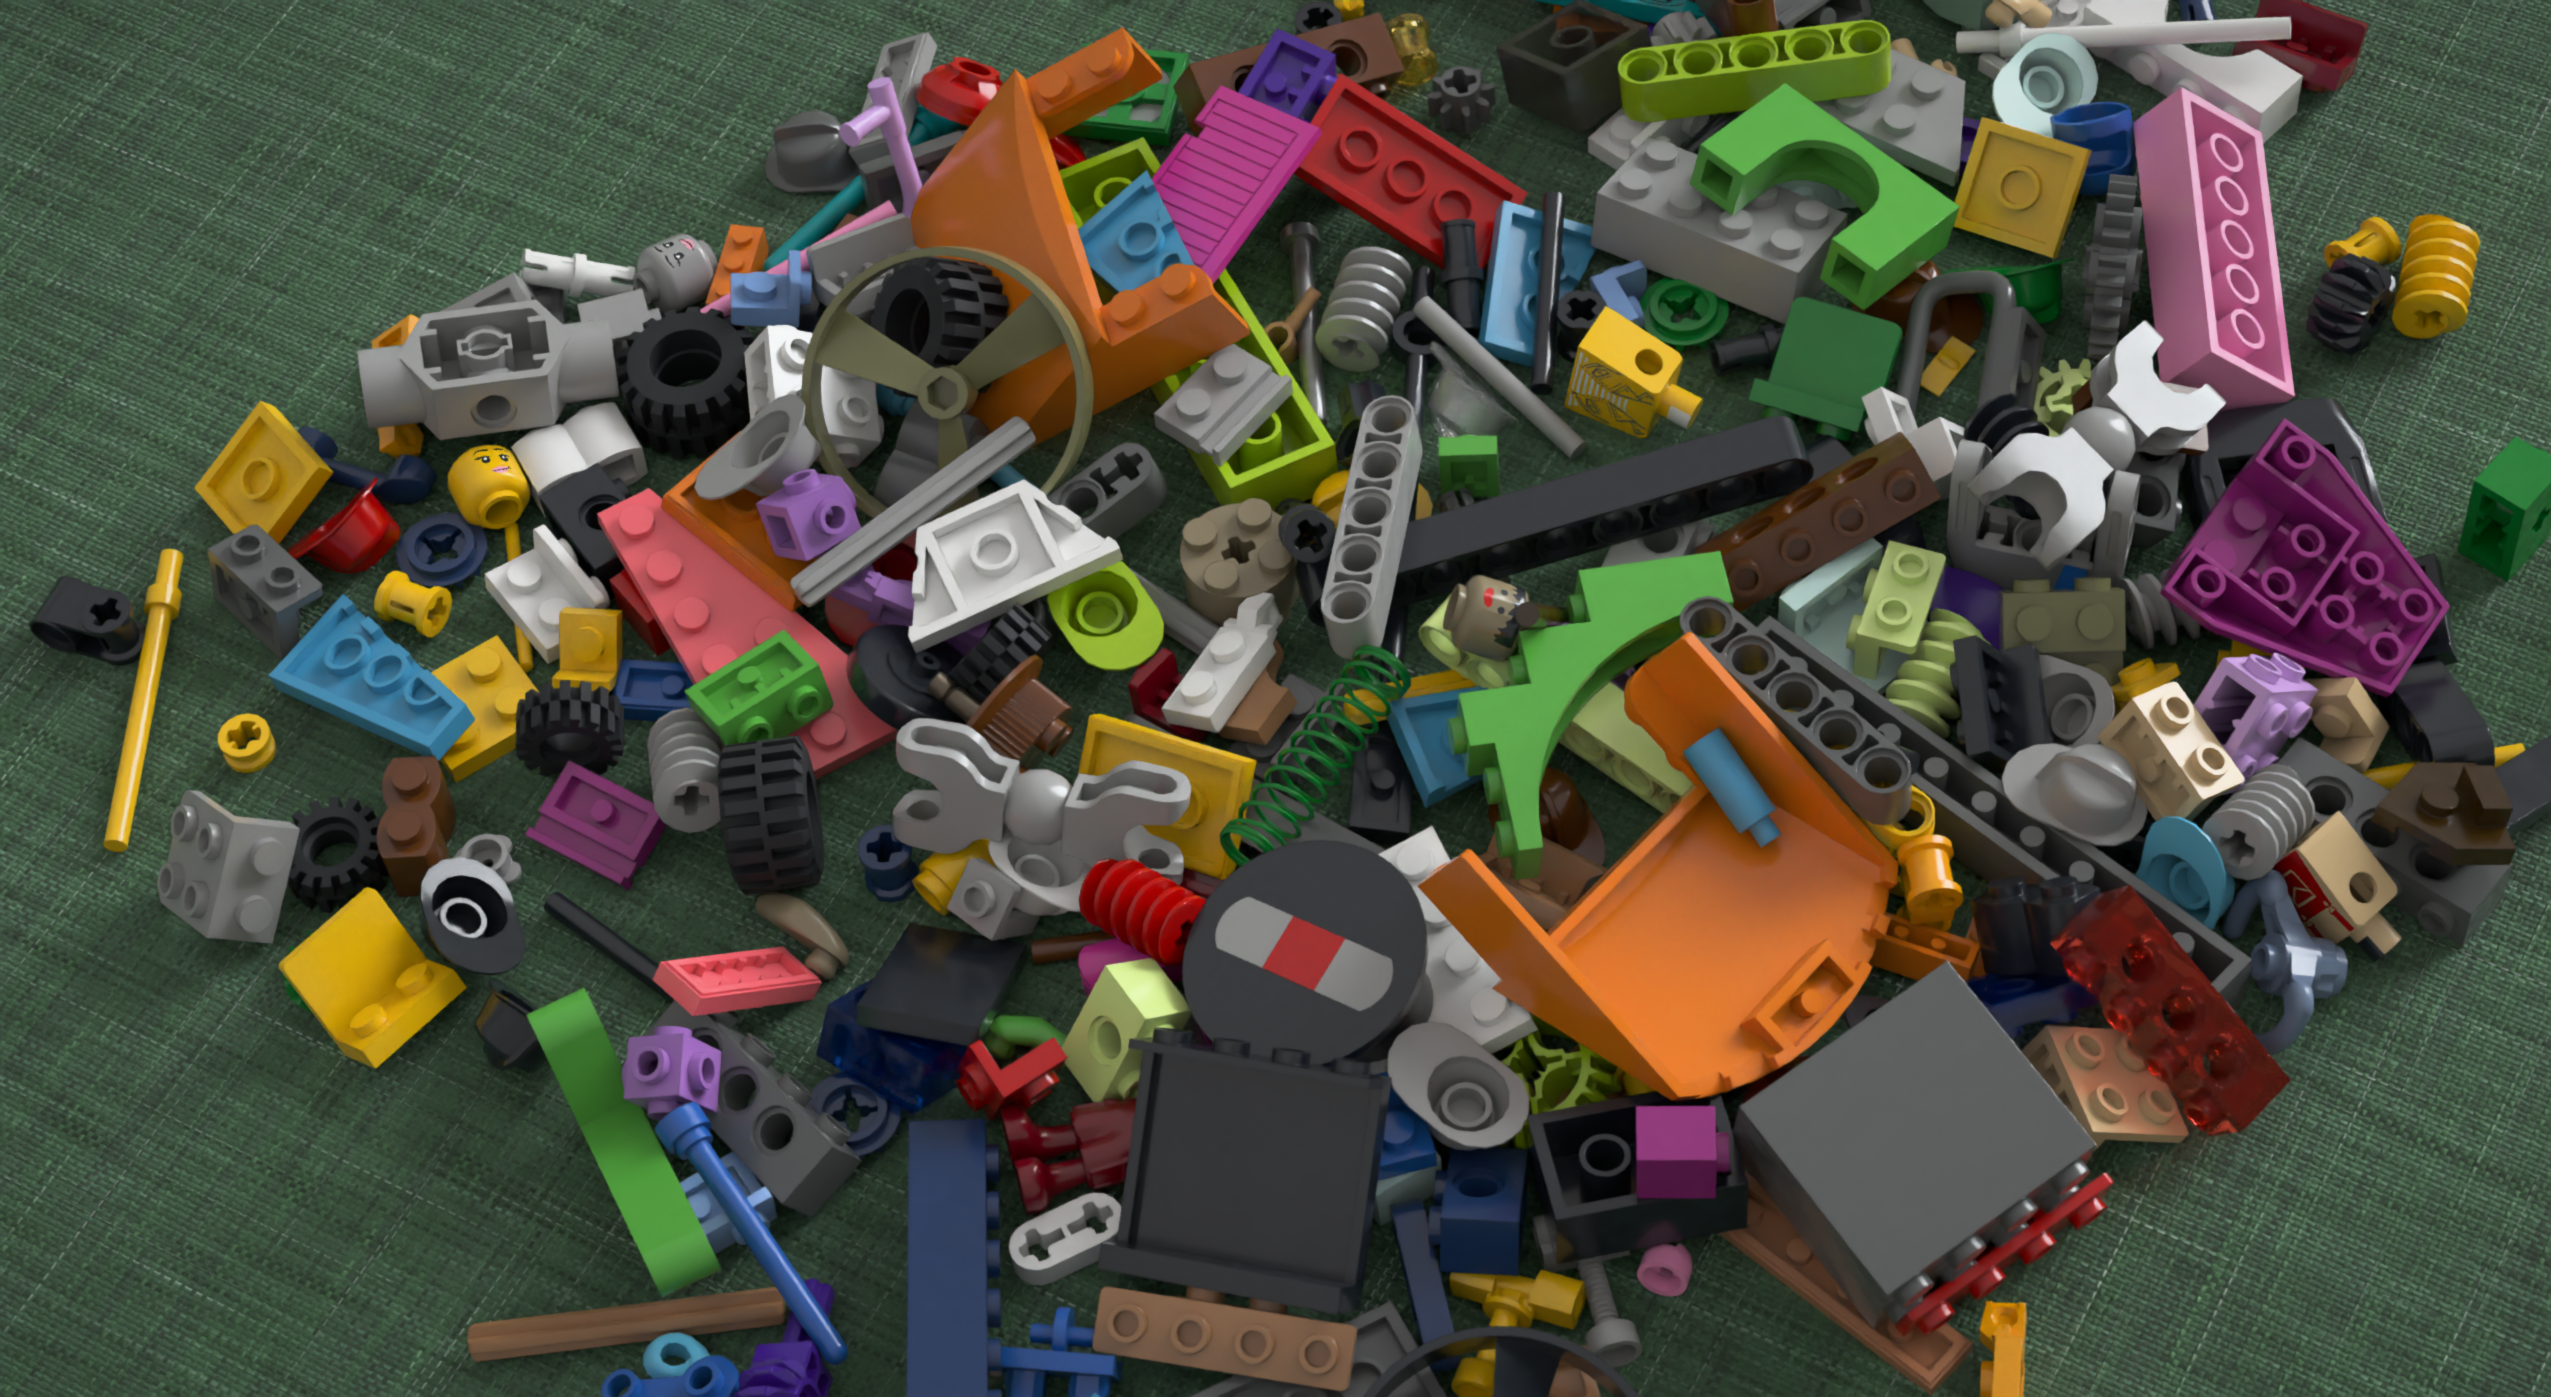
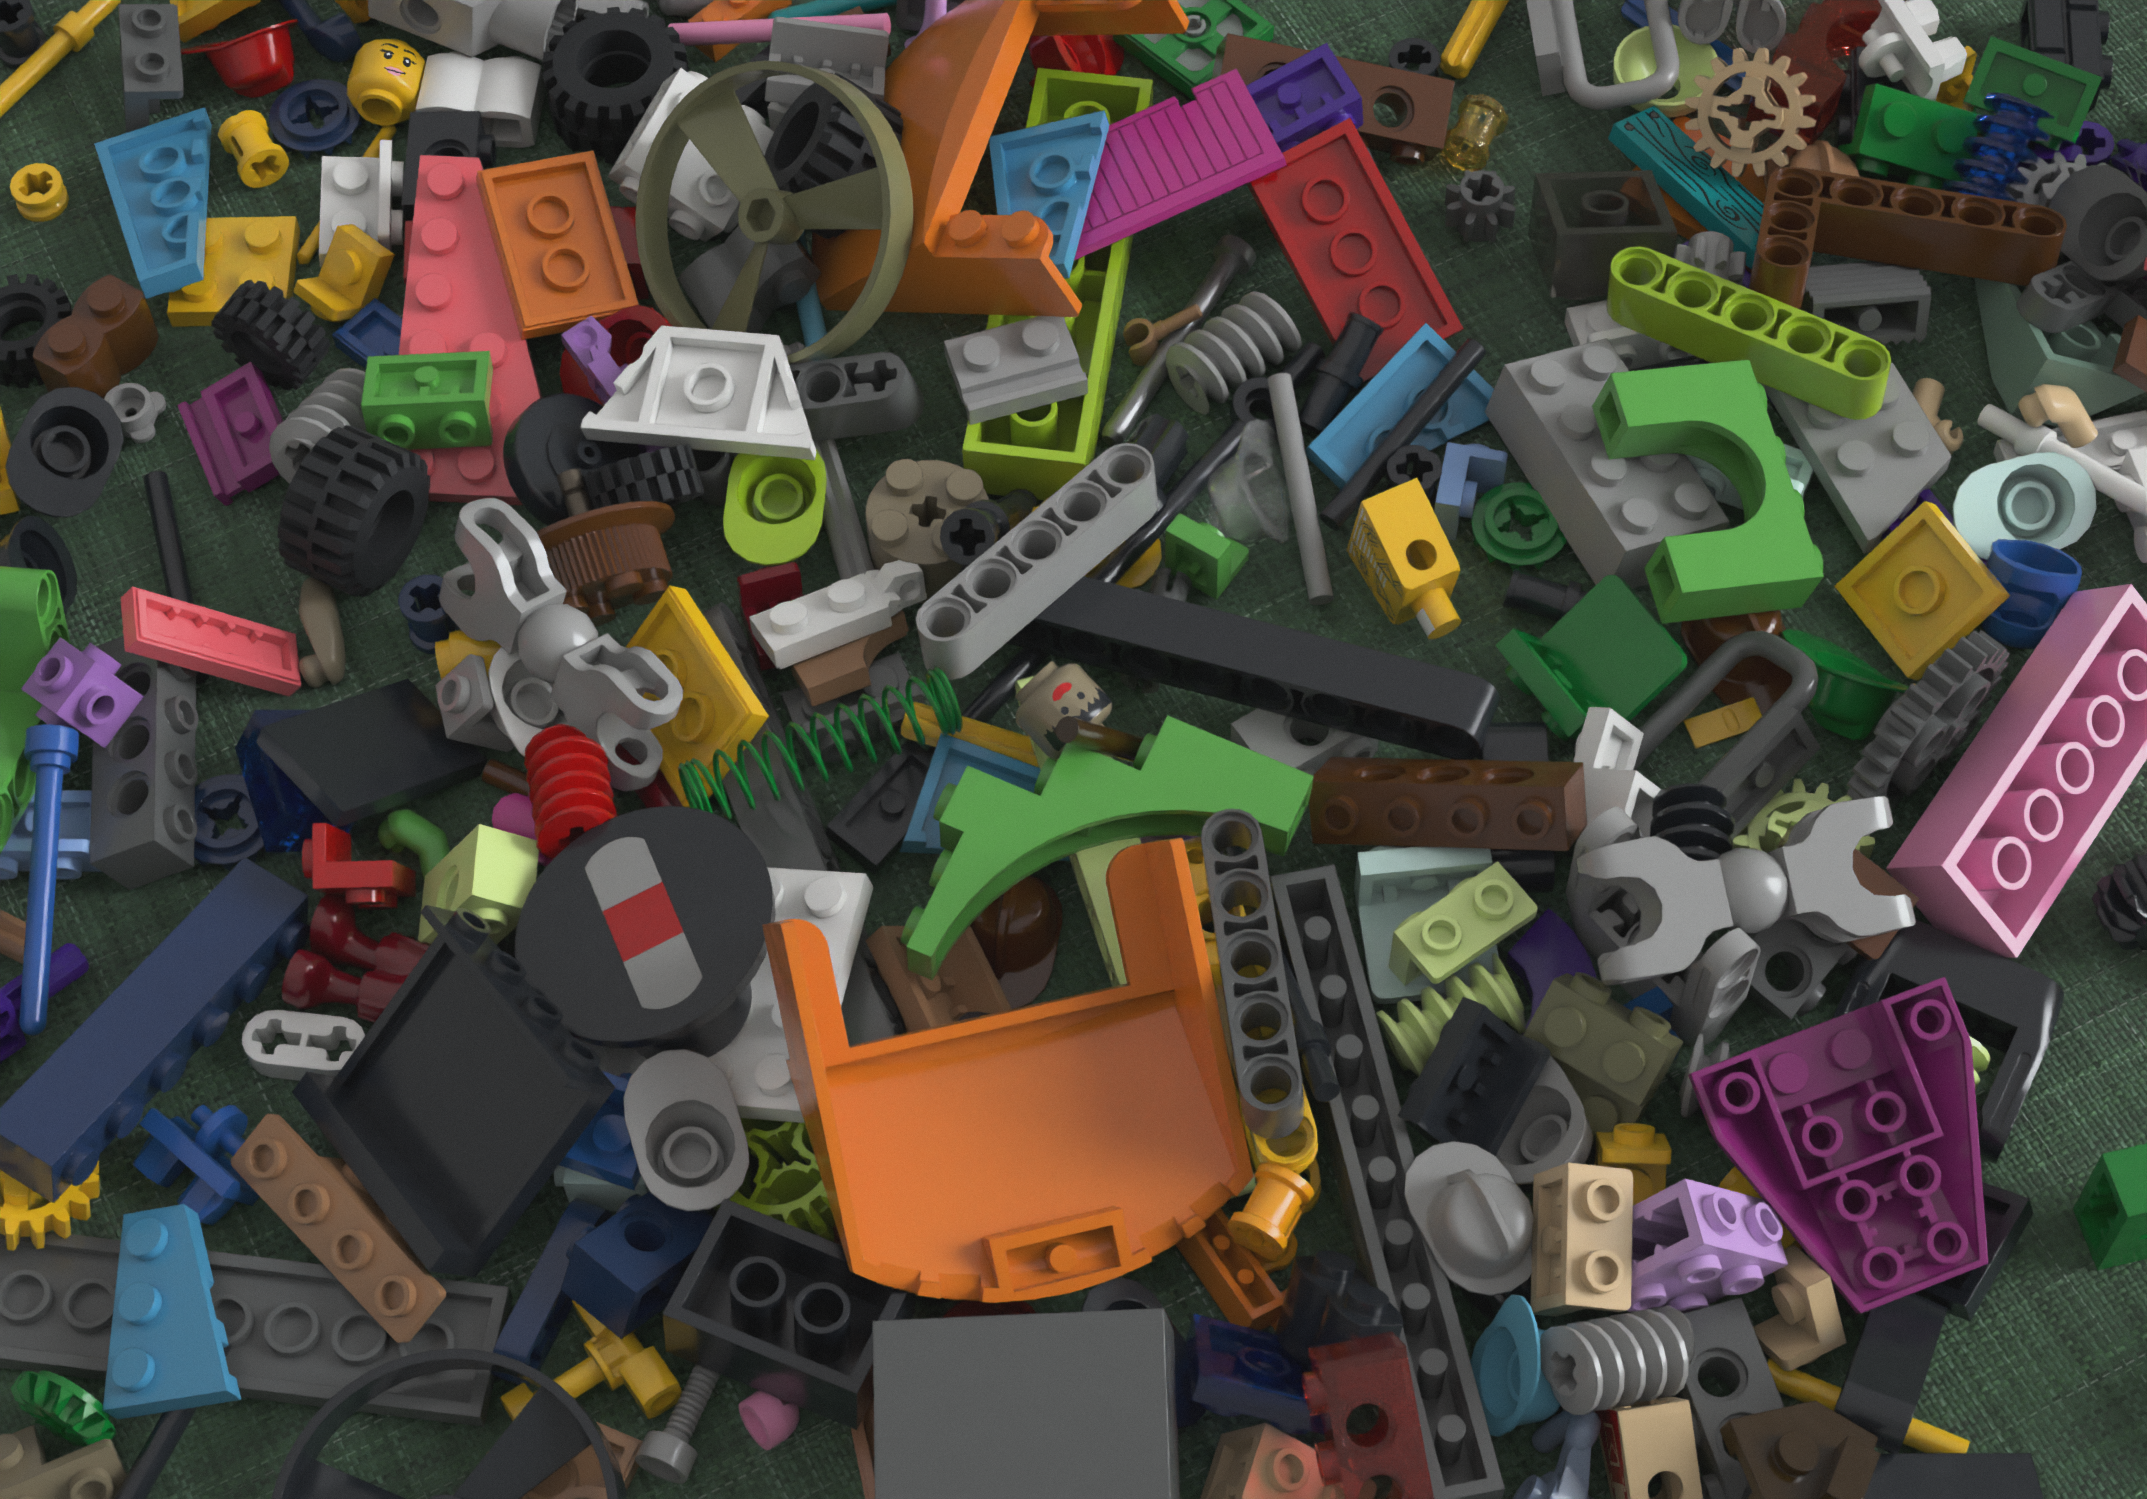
camera: 30 degrees right, 5 degrees up
(762, 453) = (581, 186): light grey piece -> none
(770, 298) = (721, 42): medium blue bracket -> none
(809, 515) = (579, 261): medium lavender brick -> none
(912, 511) = (670, 308): light grey axle -> none
(1679, 1151) = (805, 1324): magenta brick -> none
(1733, 786) = (1151, 1008): dark azure cylinder -> none

